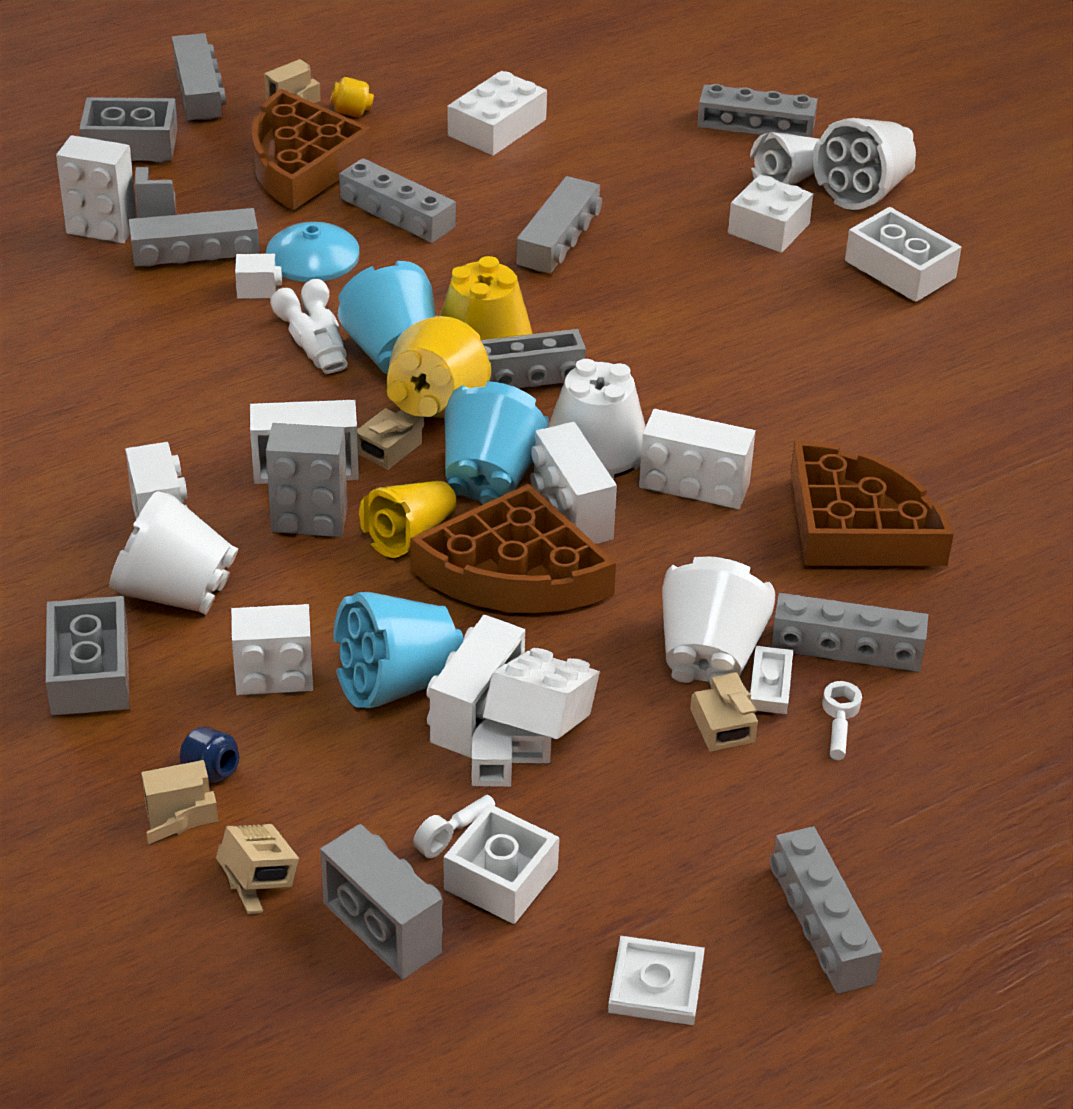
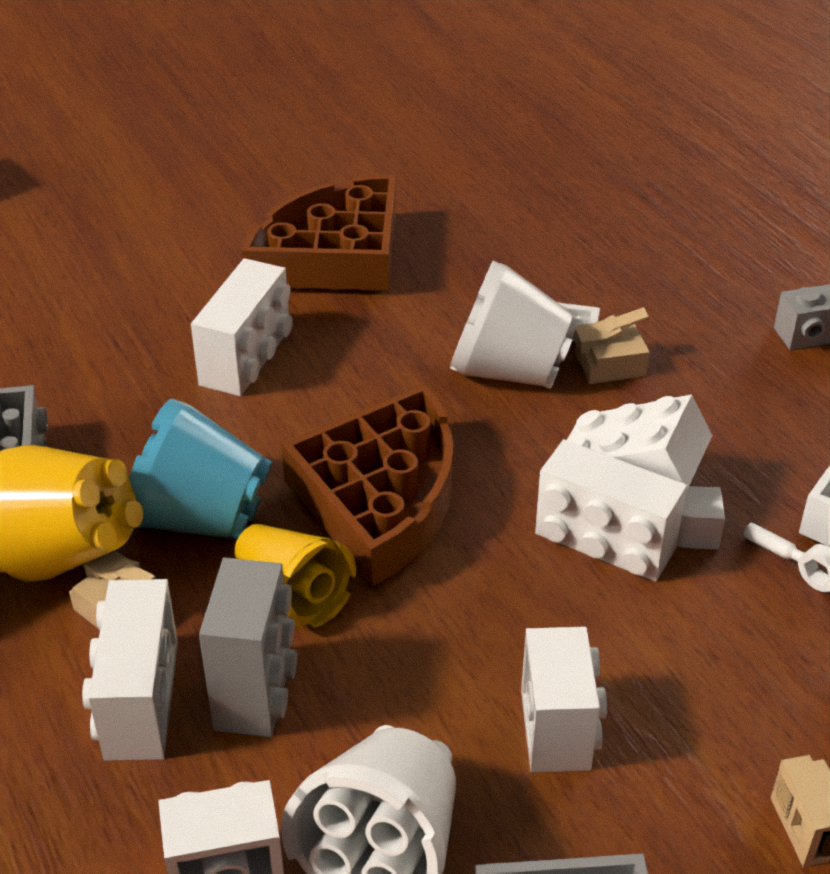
camera: 85 degrees left, 0 degrees up
(215, 748) = (730, 779): dark blue head -> none
(390, 646) = (564, 574): medium azure cone -> none
(574, 480) = (273, 405): white brick -> none
(606, 410) = (145, 372): white cone -> none
(840, 712) = (589, 288): white piece -> none
(850, 631) = (506, 243): light grey brick -> none

